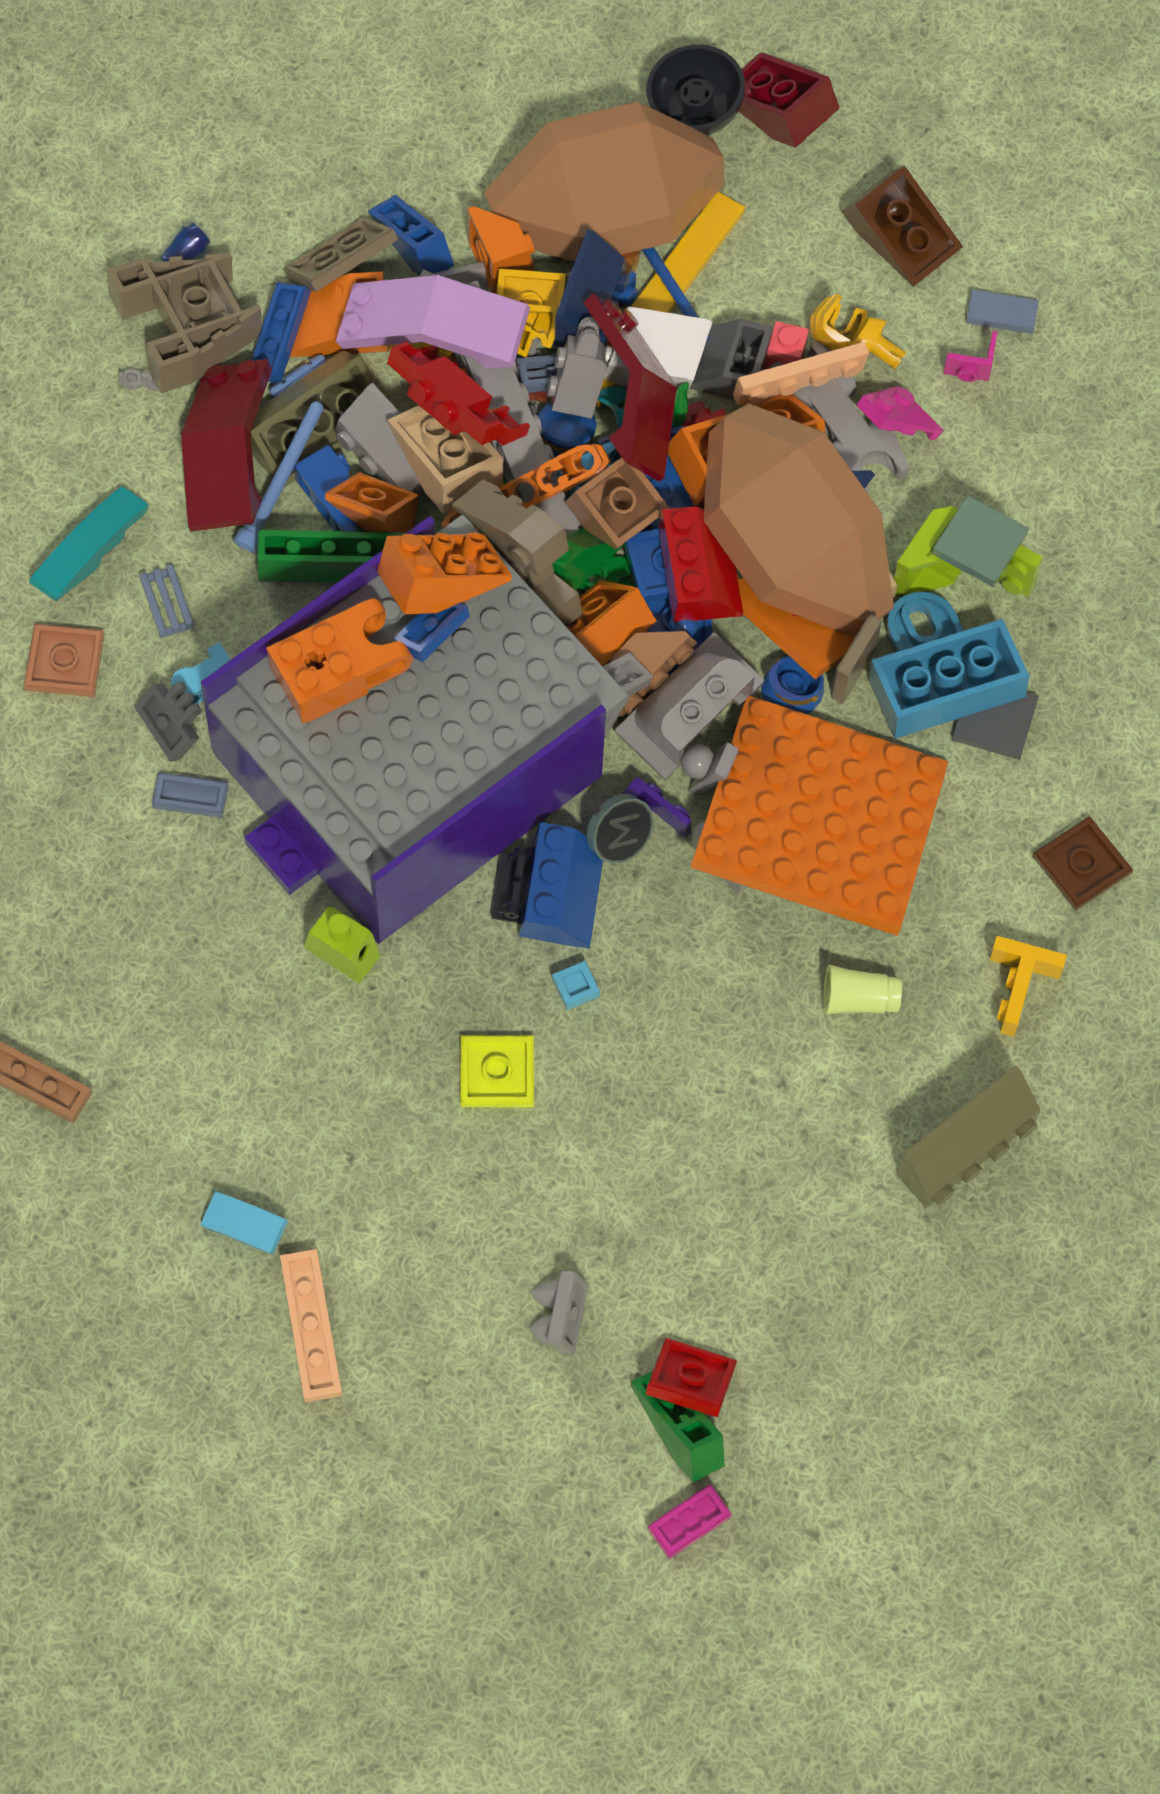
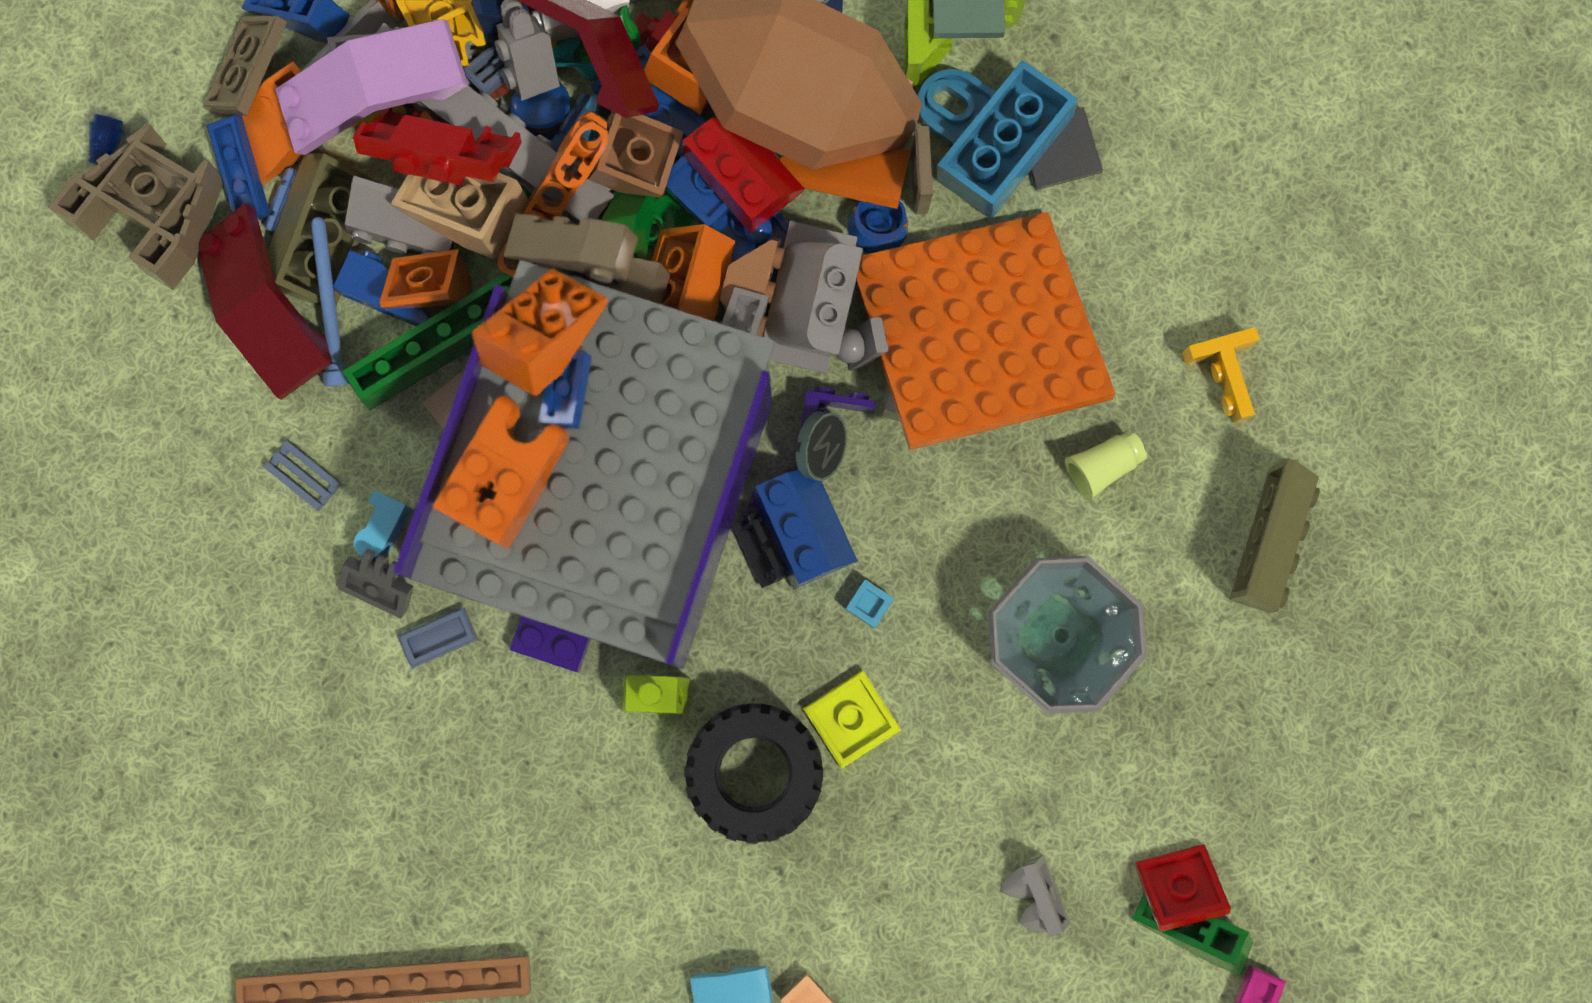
camera: 30 degrees left, 15 degrees up
(64, 660) = (250, 584): nougat tile -> none
(87, 544) = (200, 467): teal slope -> none
(134, 379) = (140, 289): light grey piece -> none
(376, 1010) = (709, 795): none -> black tyre
(732, 1066) = (1101, 628): none -> clear light blue rock
(1082, 863) = (1209, 233): reddish brown tile -> none

